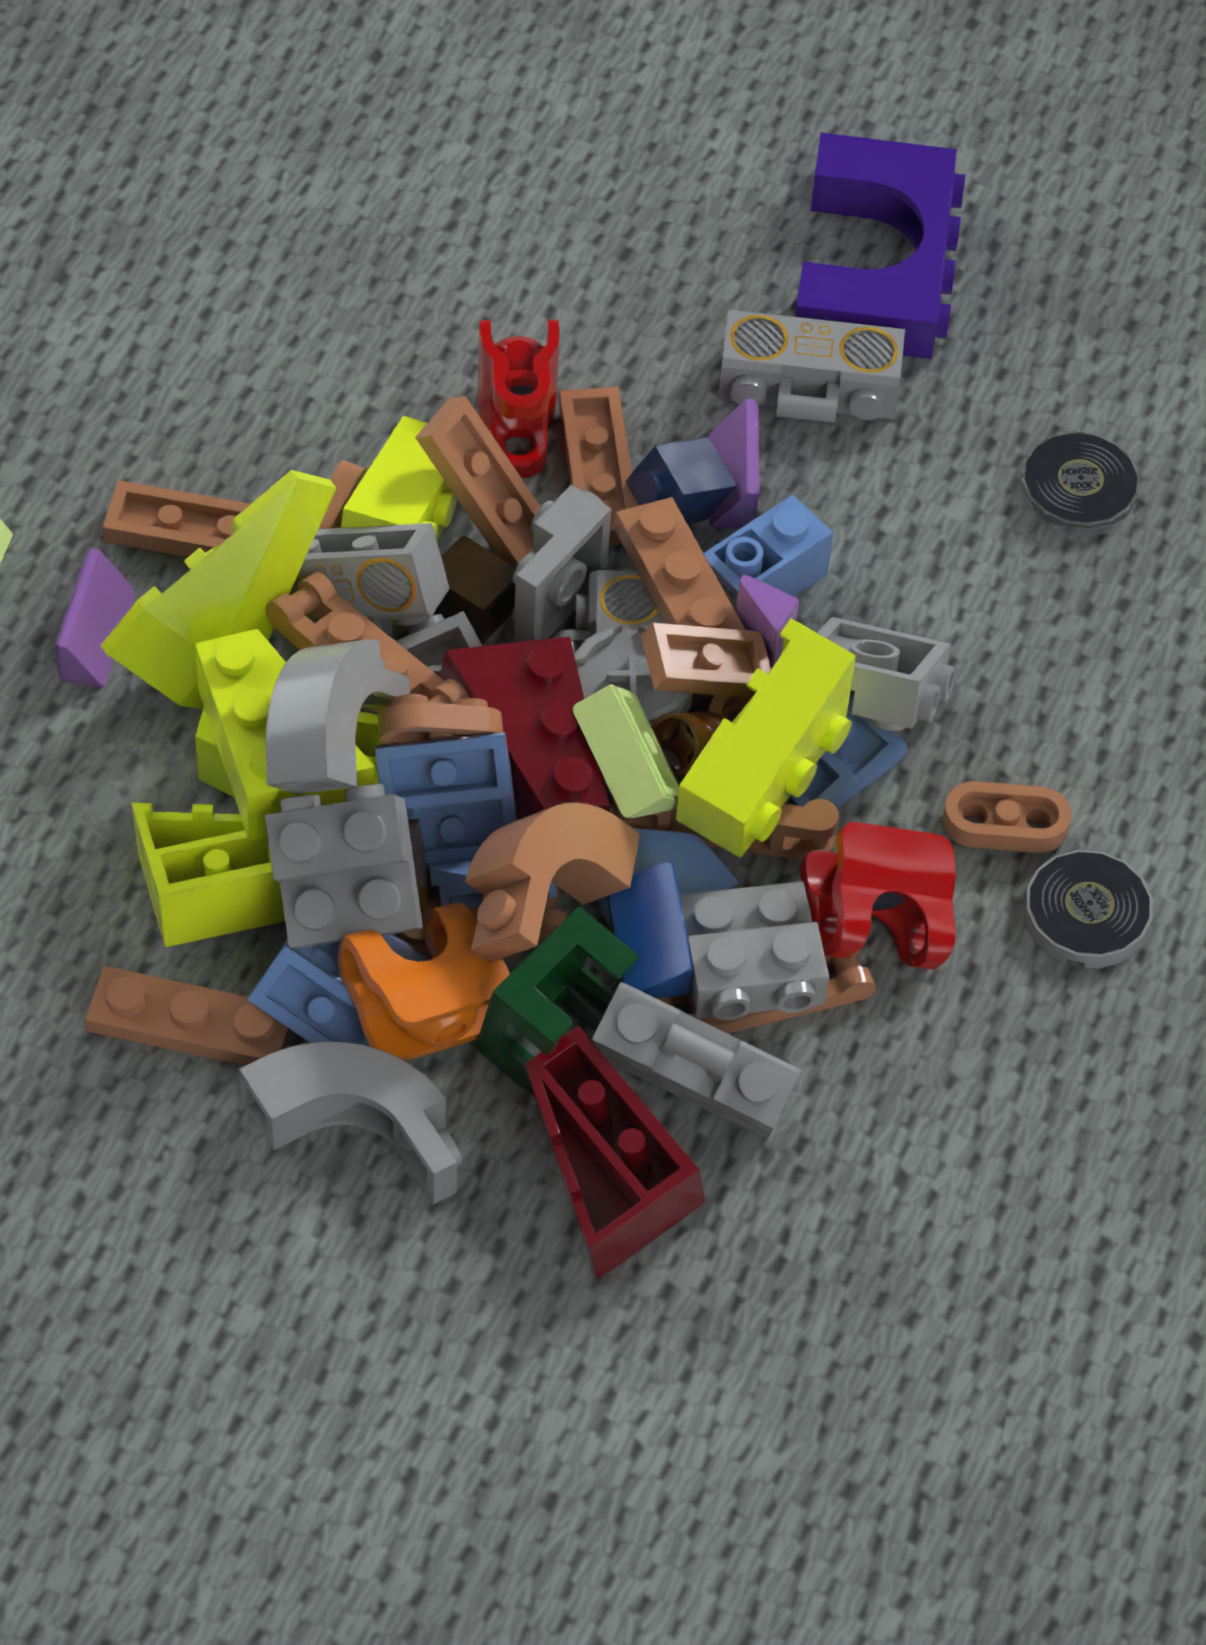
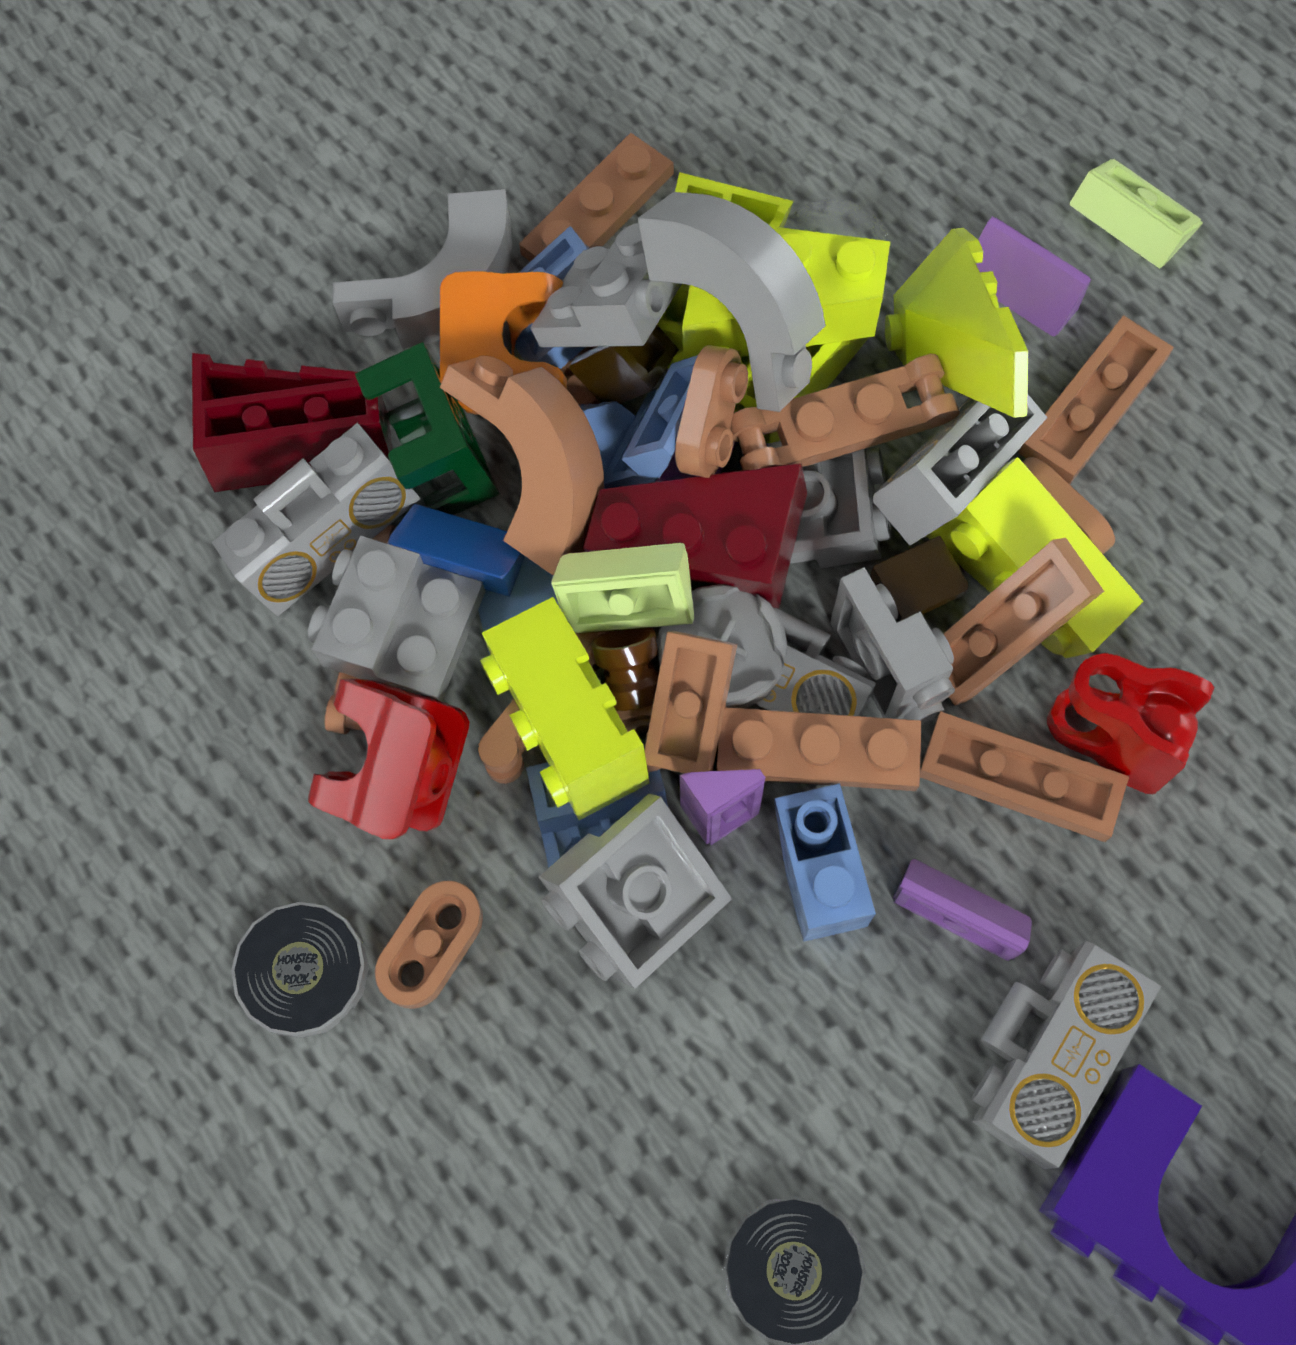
camera: 125 degrees right, 15 degrees up
(688, 473) = (953, 825): dark blue brick -> none

